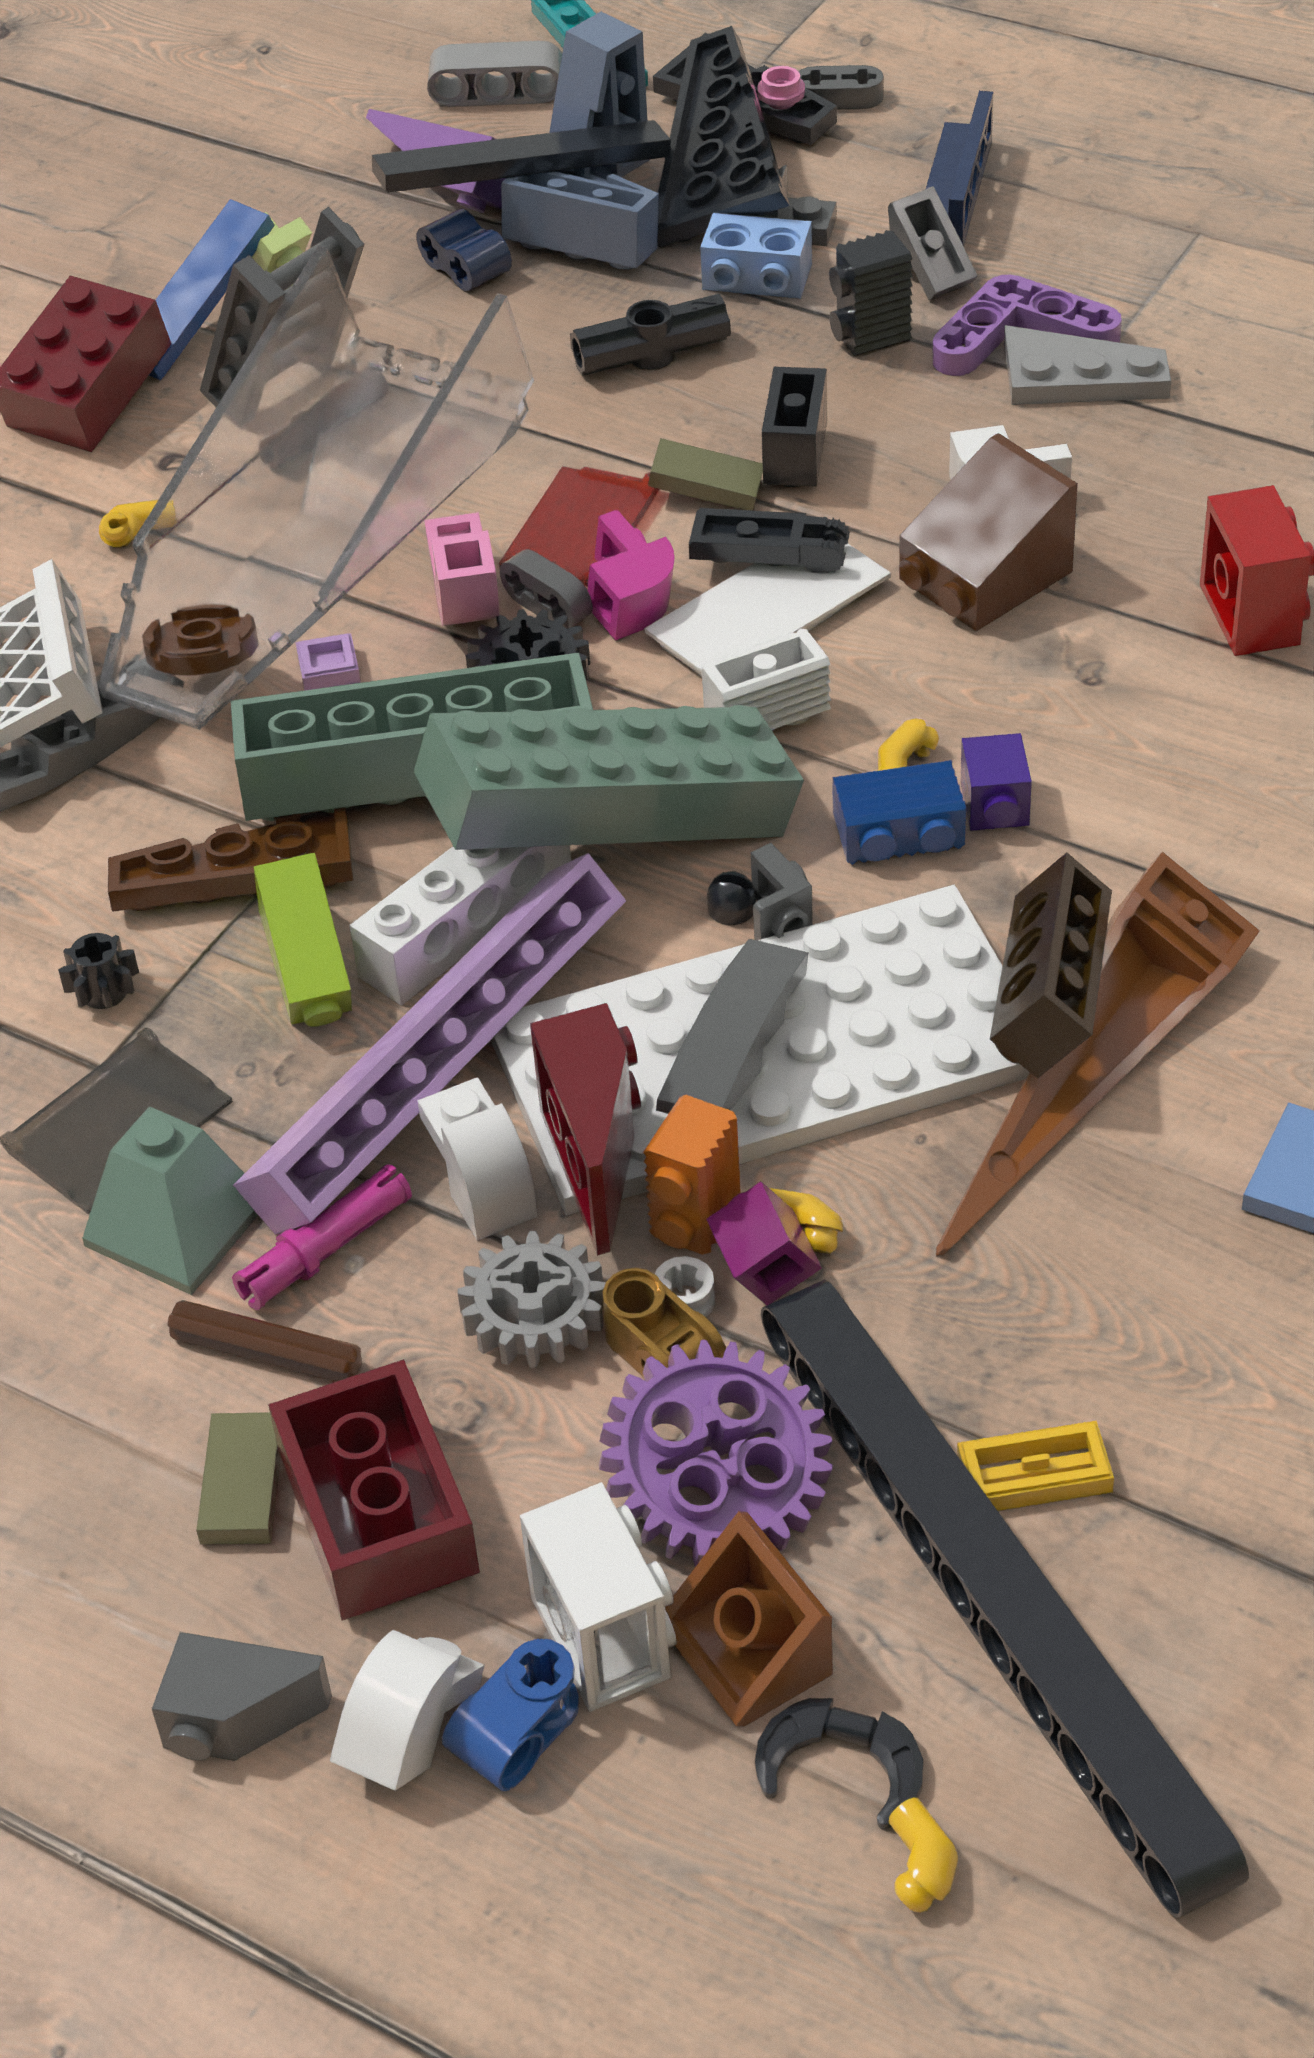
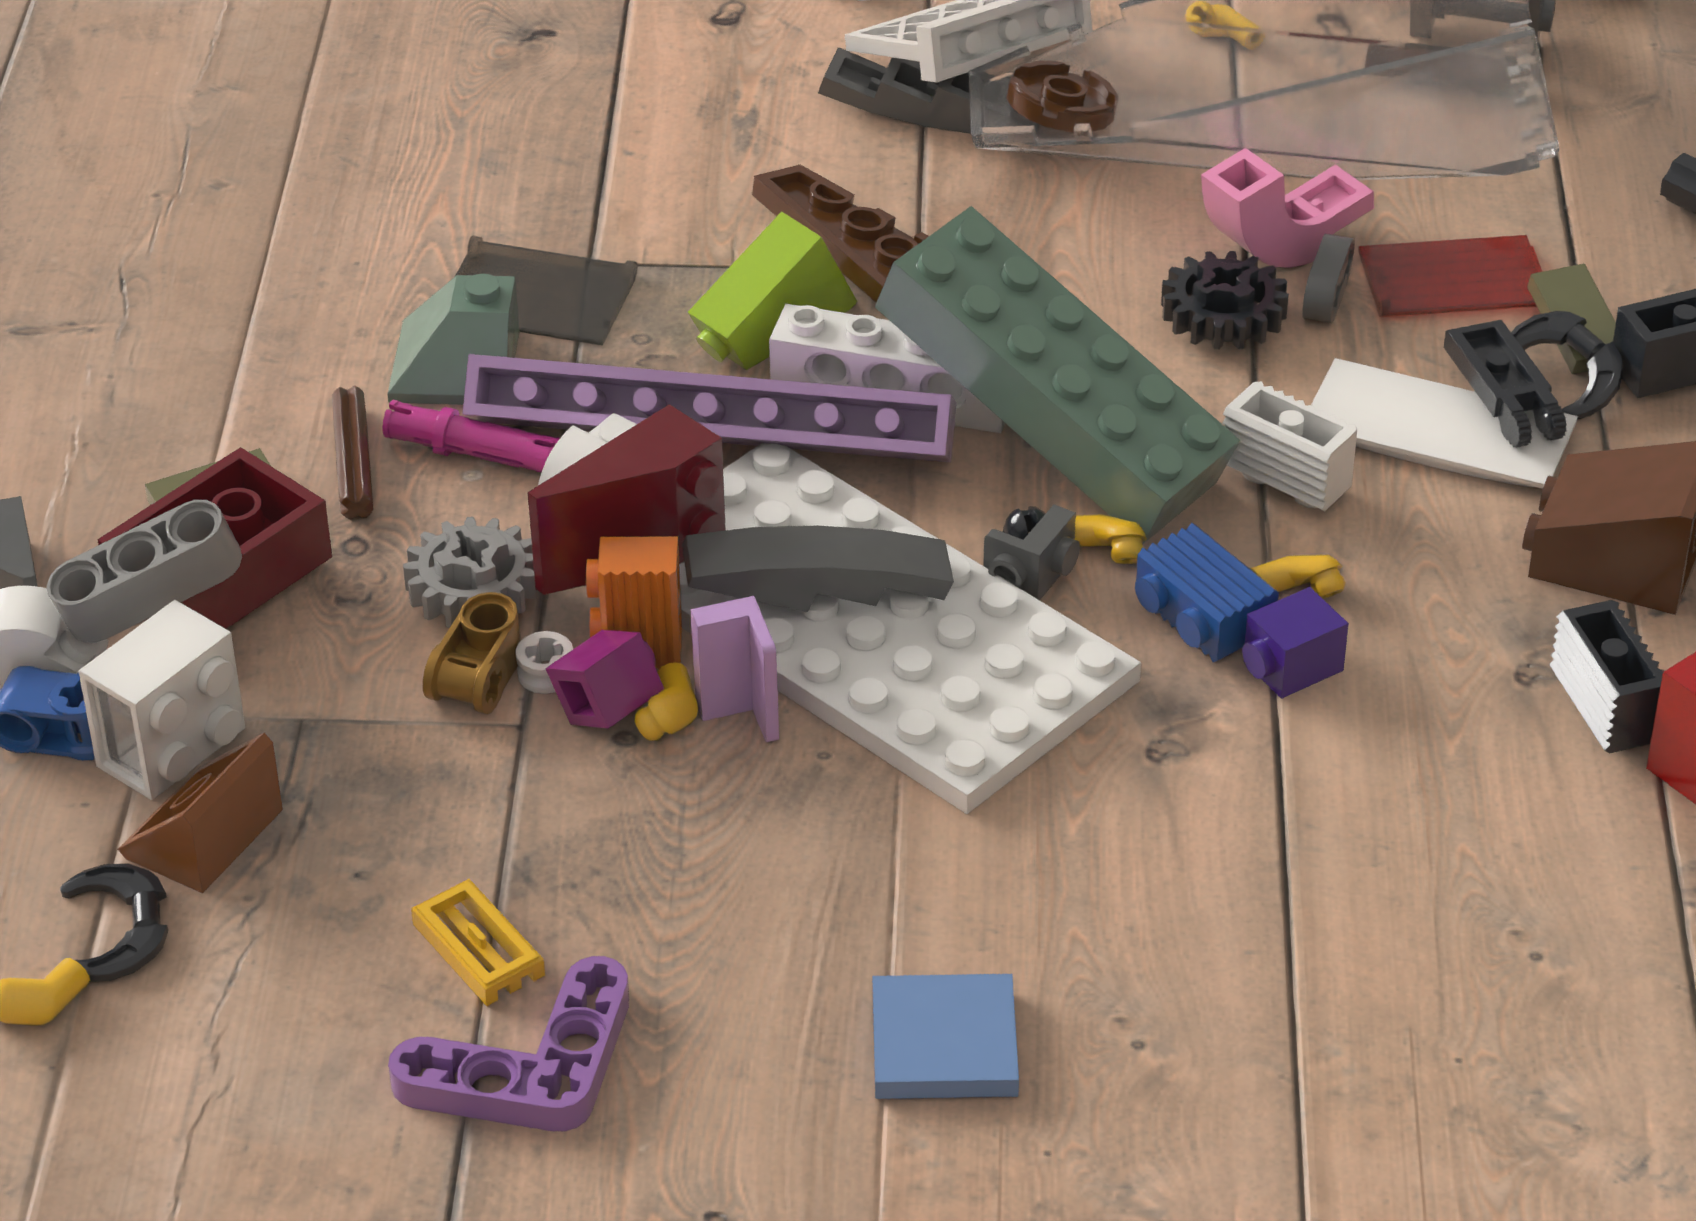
camera: 60 degrees right, 5 degrees down
(98, 971) = (673, 210): black gear -> none
(328, 662) = (1141, 197): lavender tile -> none
(365, 737) = (1074, 245): sand green brick -> none
(439, 1498) = (144, 571): none -> light grey beam
(631, 577) = (1380, 325): dark pink brick -> none
(690, 1398) = (398, 687): medium lavender gear -> none
(782, 479) = (1603, 359): none -> black piece
(786, 836) = (1104, 530): none -> yellow arm
(838, 1127) = (735, 663): none -> lavender panel
(1008, 1604) = (311, 955): black beam -> none
(1051, 966) = (1039, 733): dark brown brick -> none
(1159, 961) = (1105, 821): dark orange plate -> none
(1163, 619) = (1608, 674): none -> black brick
(1235, 1480) = (532, 1077): none -> medium lavender beam

